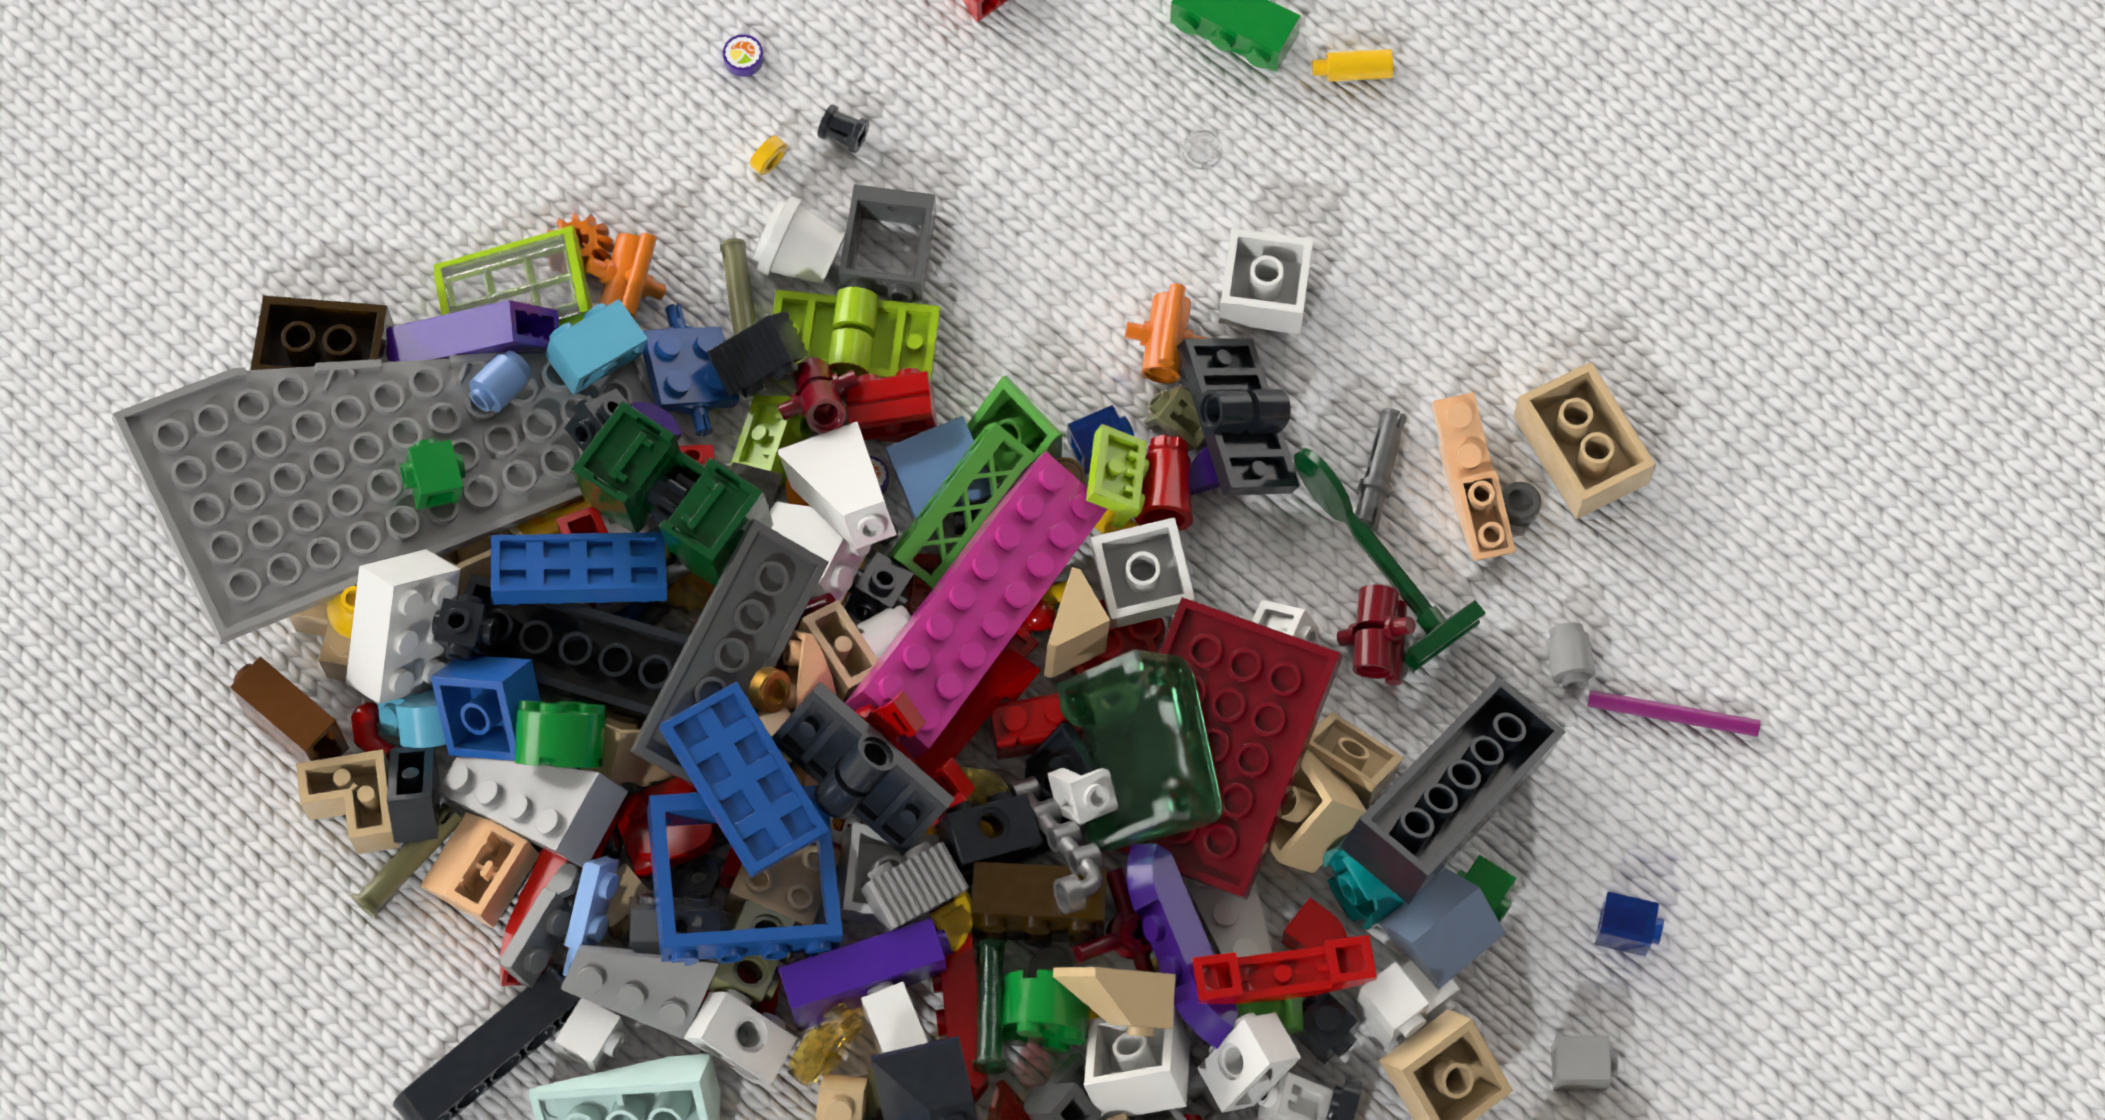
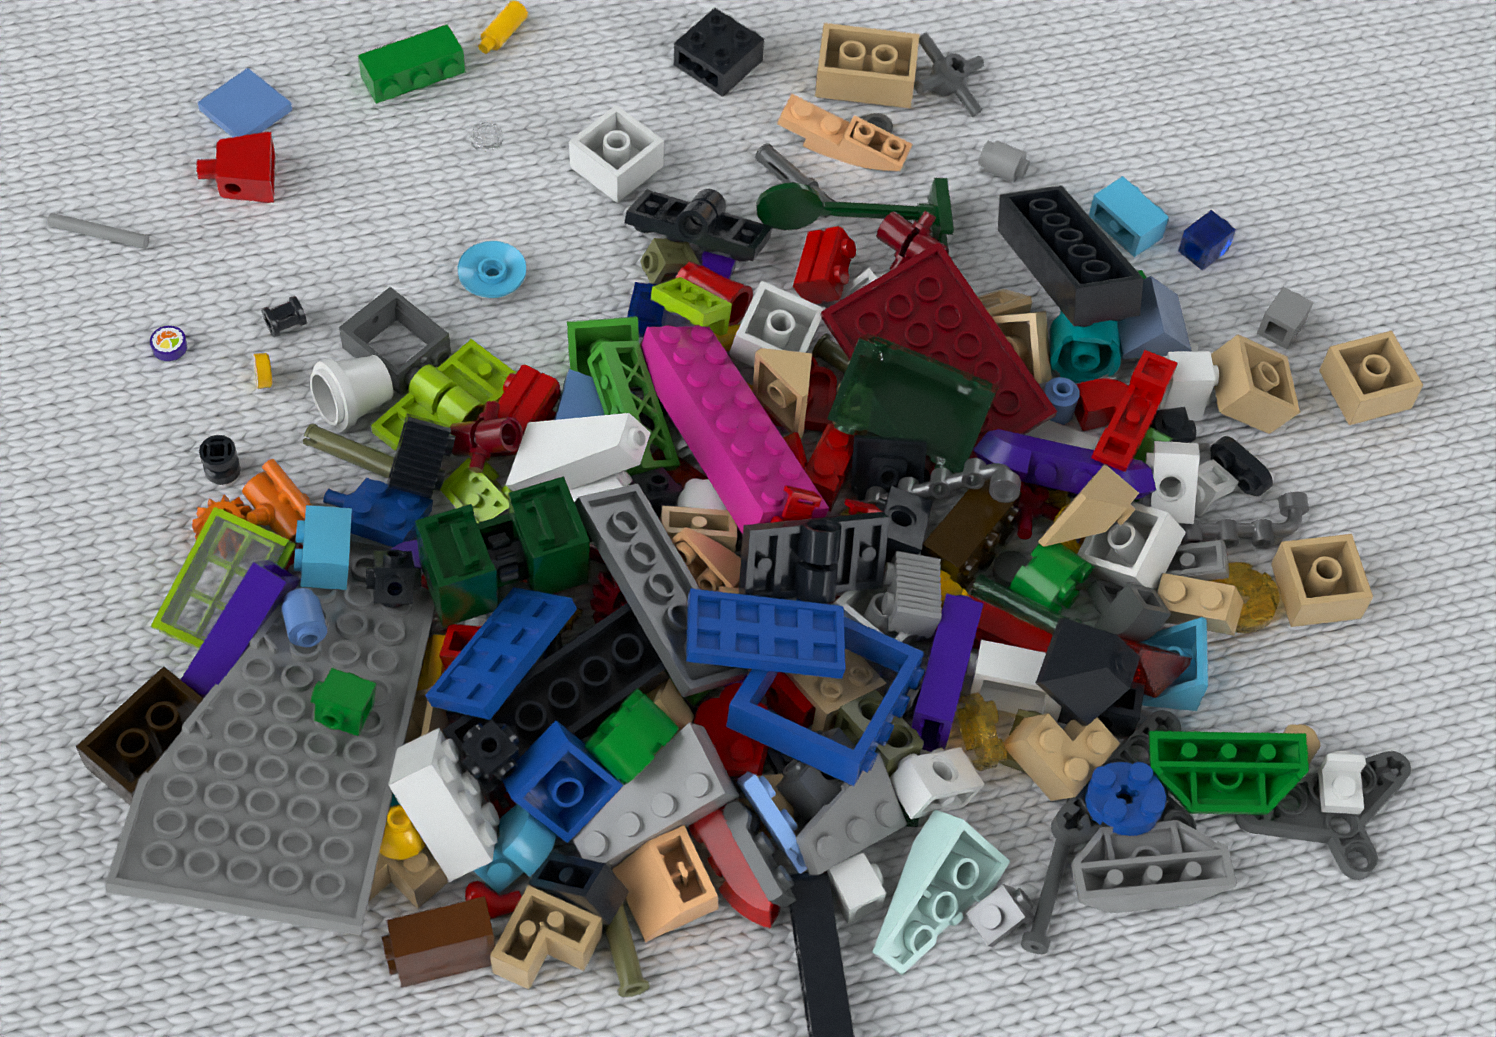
camera: 60 degrees left, 10 degrees down
(652, 198) = (219, 459): none -> black wheel
(769, 689) = (703, 577): pearl gold tile -> none
(1033, 251) = (491, 259): none -> medium azure dish
(1083, 796) = (919, 454): white bracket -> none
(1163, 333) = (605, 229): orange pin -> none
(1280, 565) = (824, 265): none -> red brick
(1280, 906) = (1064, 397): none -> medium blue brick
(1491, 286) = (718, 51): none -> black brick
(1596, 824) = (1128, 216): none -> medium azure brick
(1652, 517) = (949, 74): none -> dark grey bar
(1673, 713) = (1077, 139): magenta bar -> none

